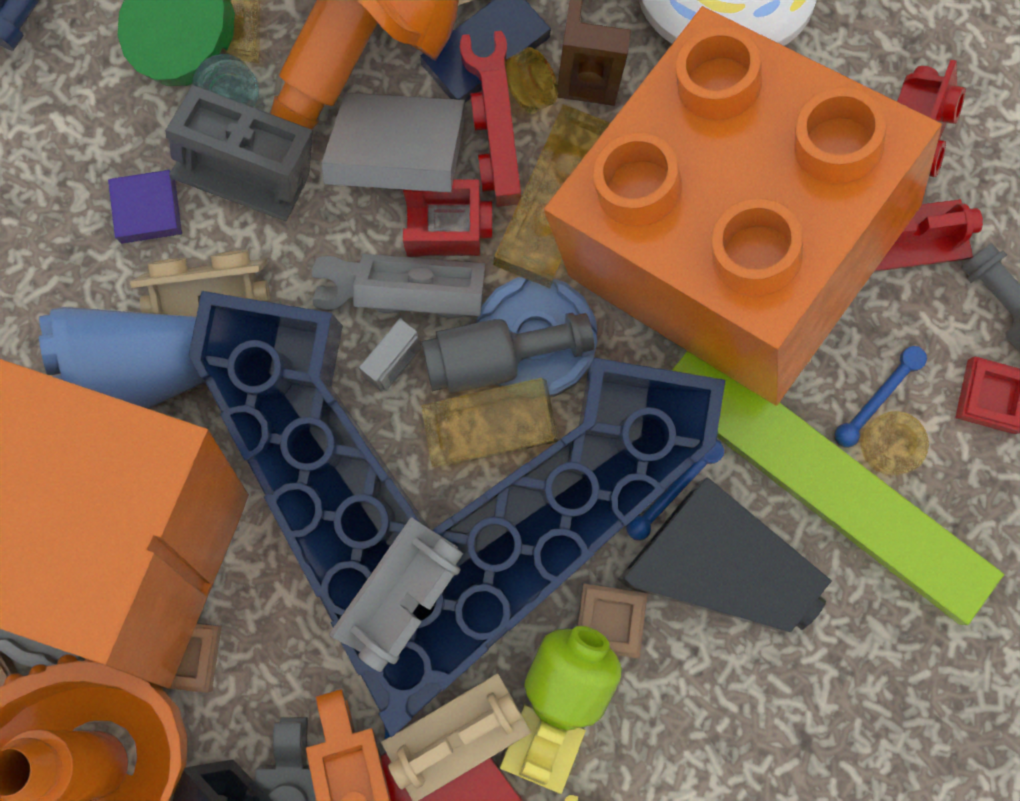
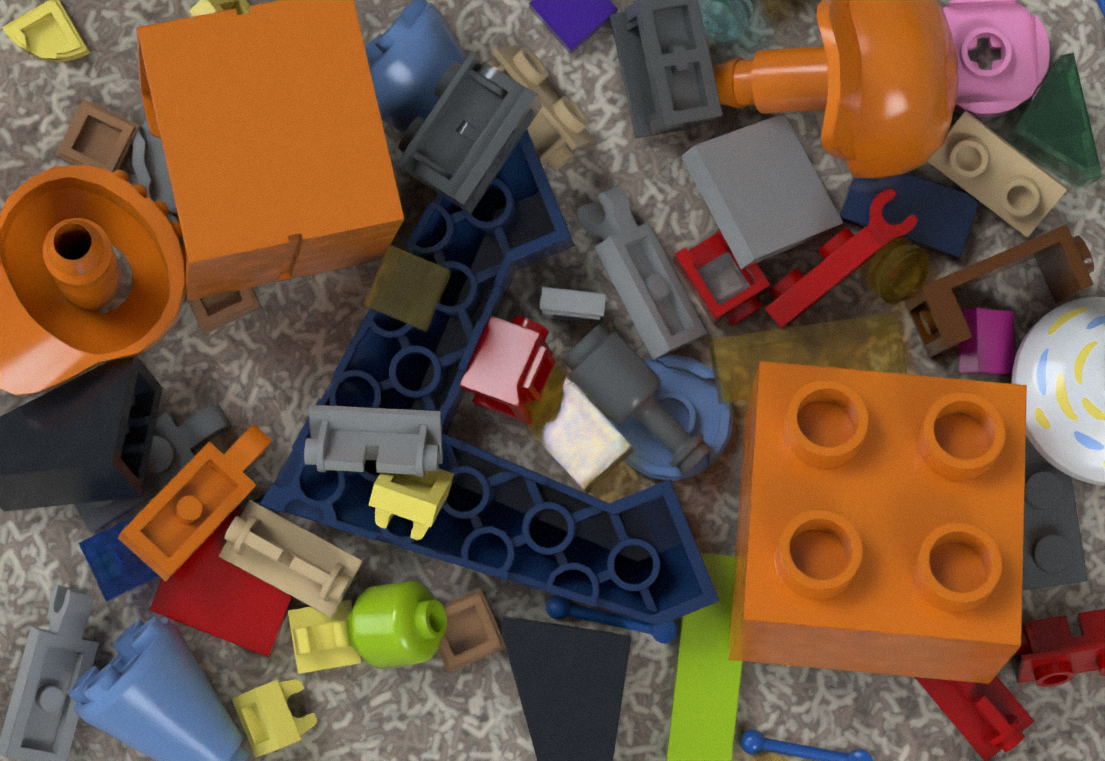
camera: 65 degrees right, 5 degrees up
(178, 339) = (468, 131): none -> dark grey hinge
(282, 481) = (407, 288): none -> clear yellow tile
(410, 439) = (510, 367): none -> window
(471, 594) = (410, 498): none -> light yellow tile
(643, 50) = (992, 345): none -> dark pink tile

